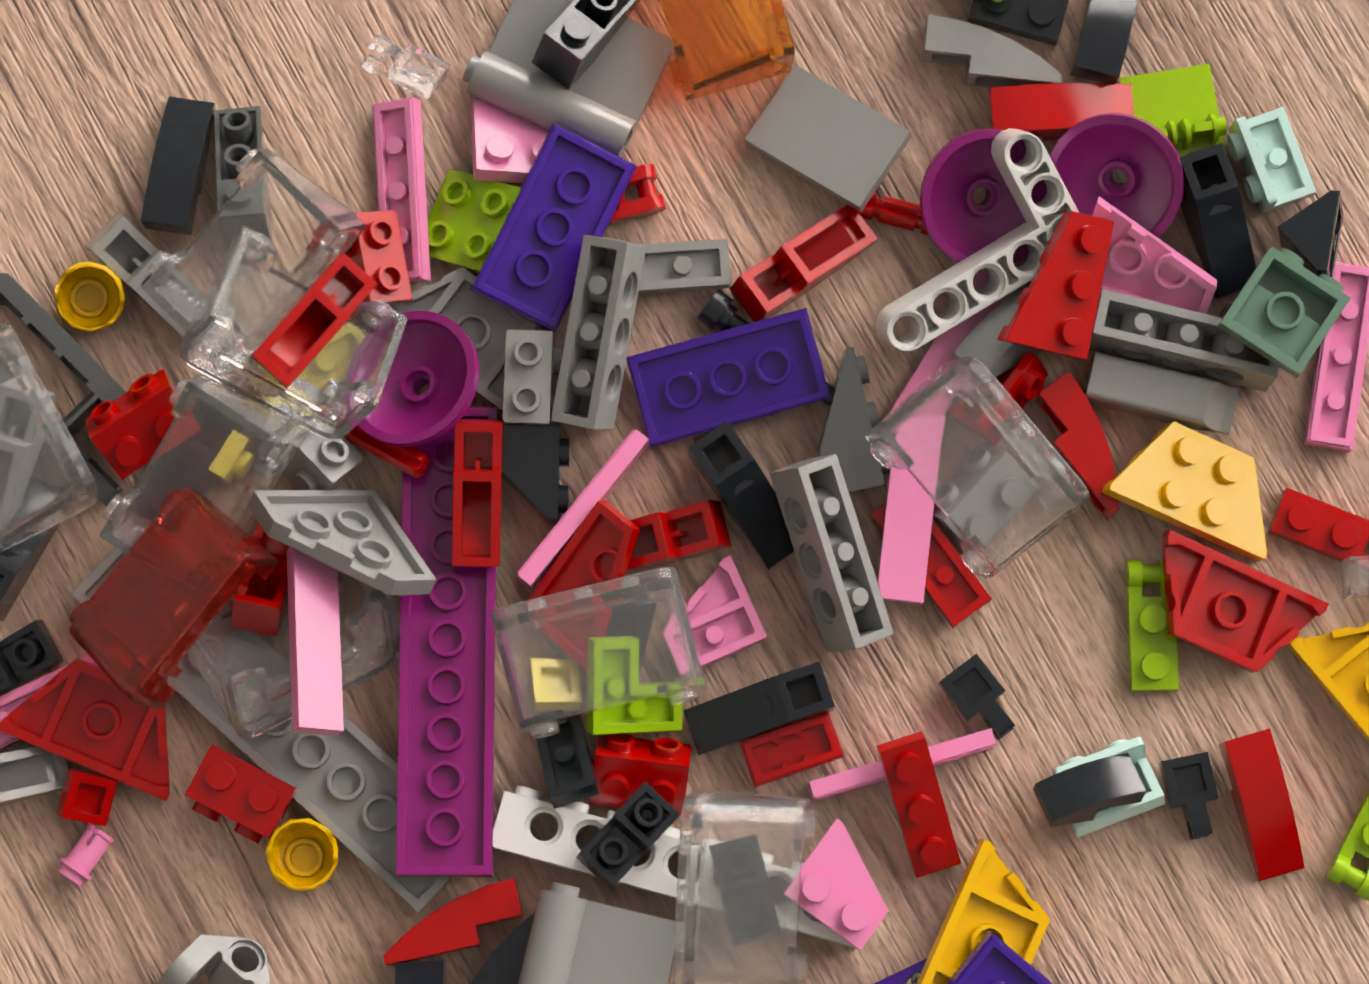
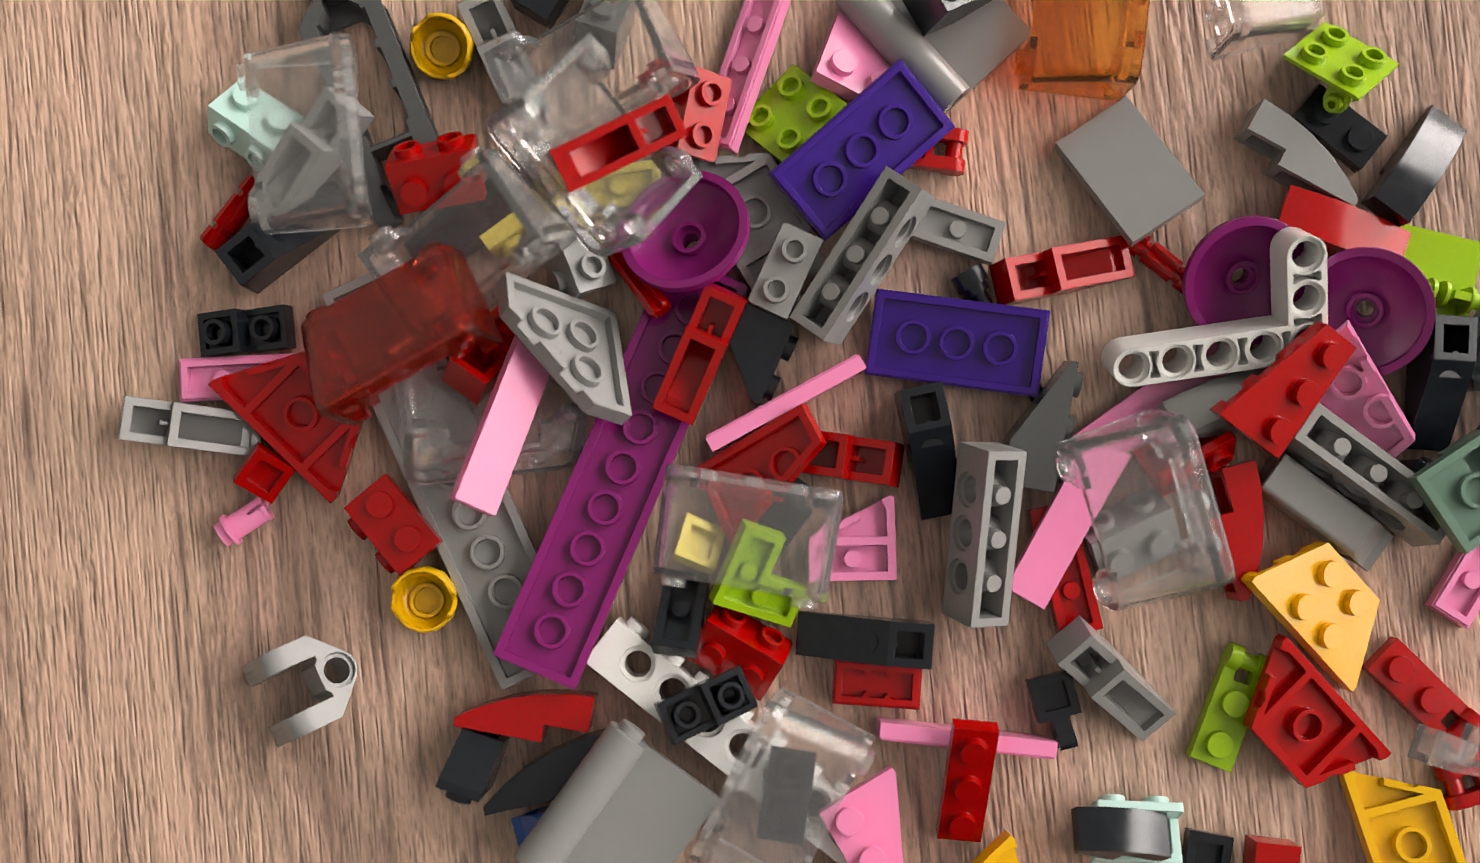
camera: 25 degrees right, 5 degrees up
(1020, 646) = (1109, 678): none -> light grey slope

